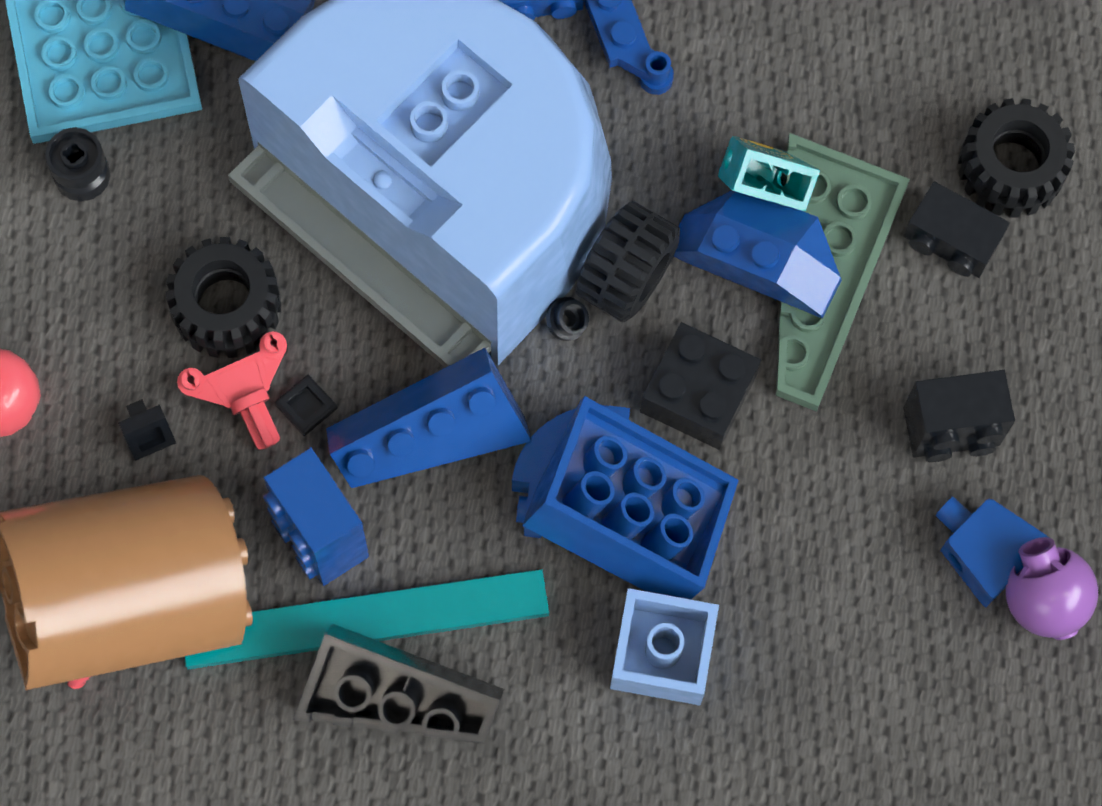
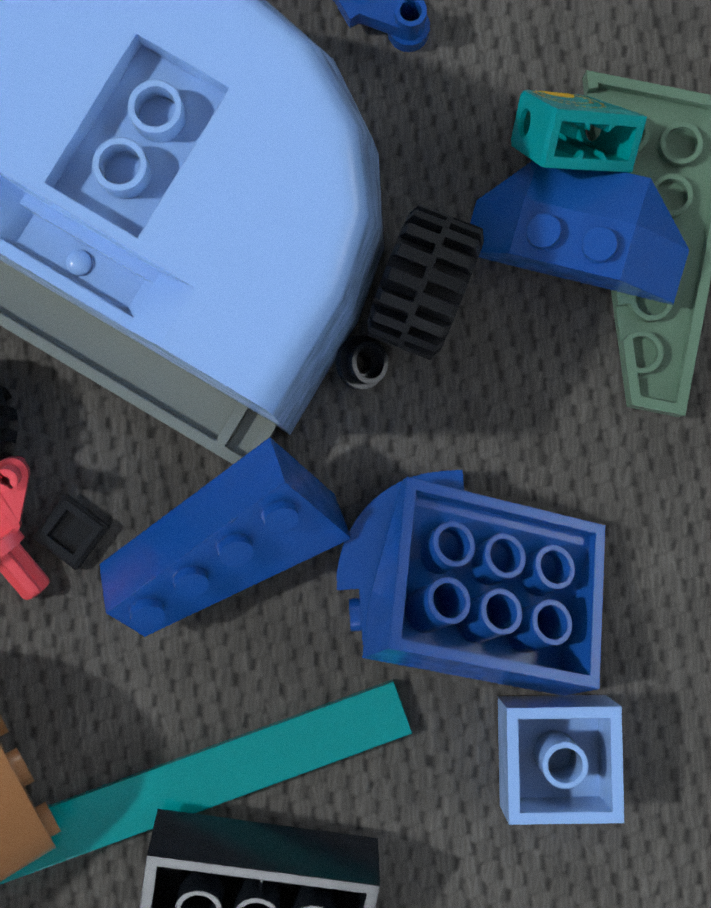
camera: 10 degrees left, 15 degrees up
(315, 518) = (100, 703): blue brick -> none
(700, 385) = (541, 418): black brick -> none

